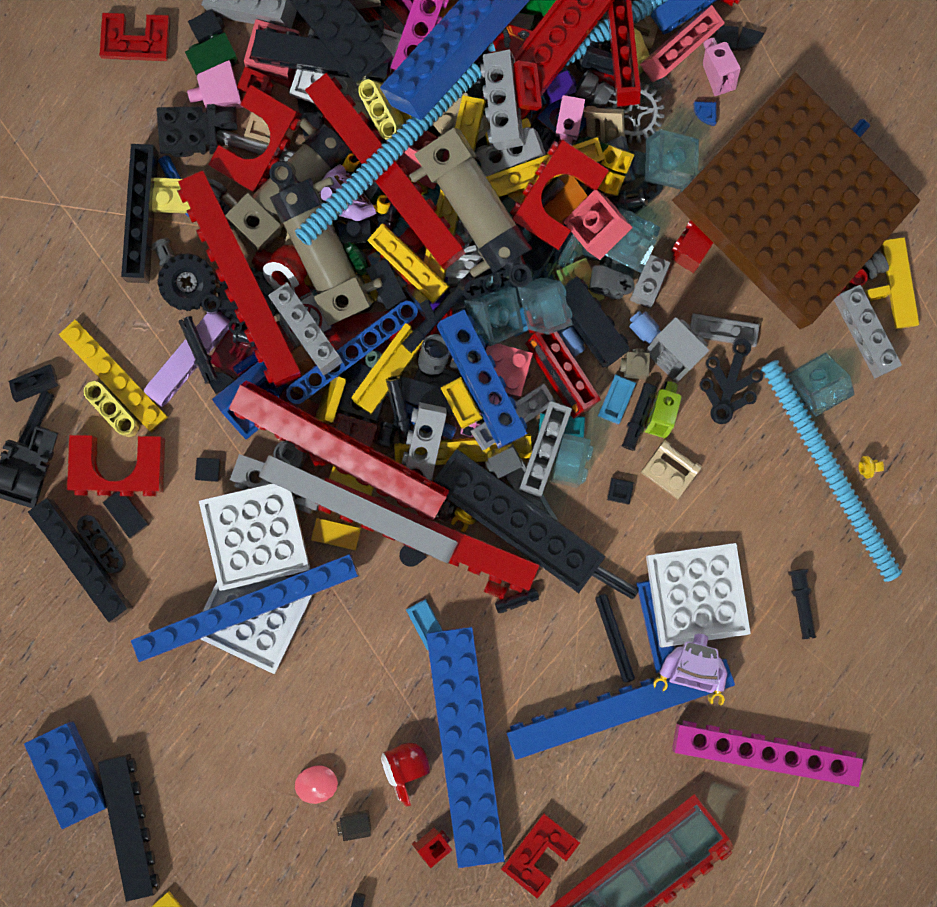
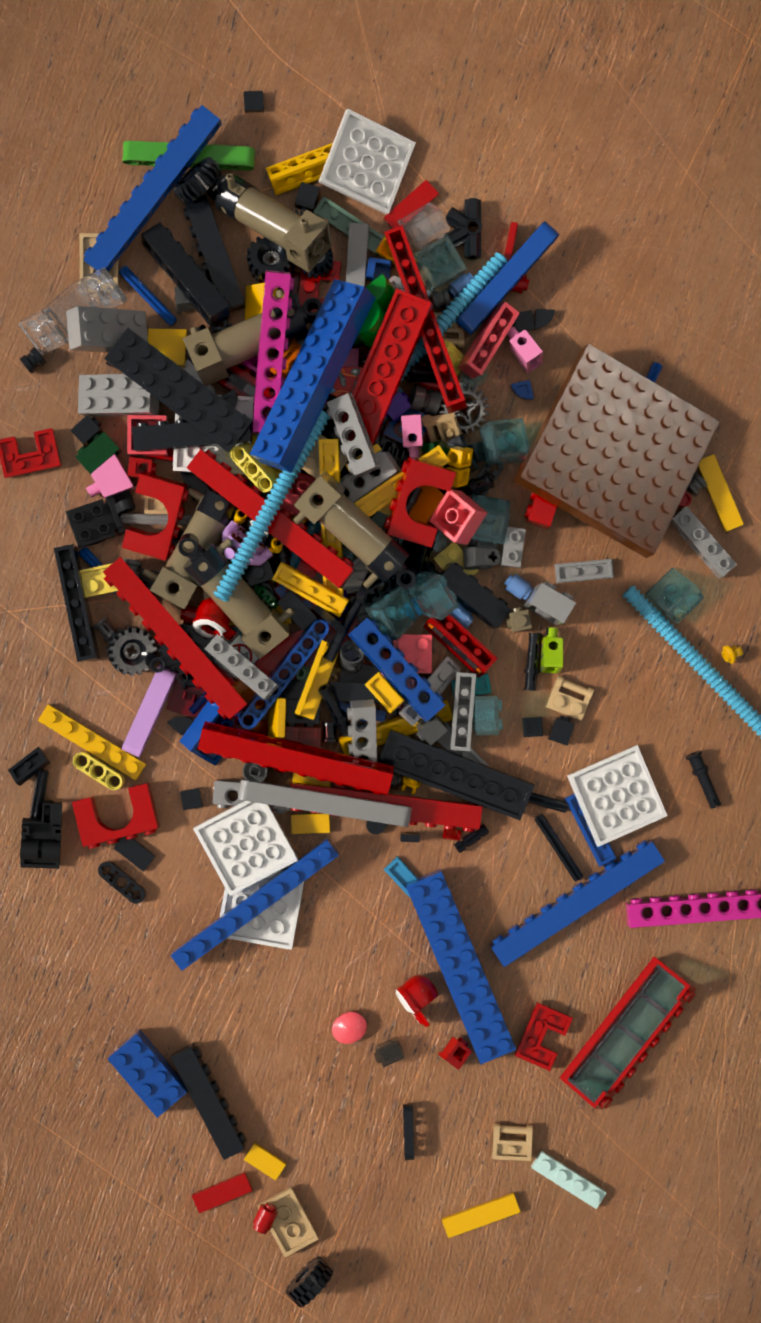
camera: 15 degrees left, 5 degrees up
(80, 560) = (109, 900): black brick -> none
(198, 350) = (156, 703): black pin -> none
(447, 580) = (410, 837): none -> black tile
(527, 85) = (370, 418): red plate -> none
(617, 399) = (510, 652): dark azure tile -> none
(652, 503) = (561, 730): none -> black brick
(696, 668) = (629, 856): lavender torso -> none
(729, 385) = (600, 616): black plant -> none
(878, 293) = (702, 508): yellow tile -> none

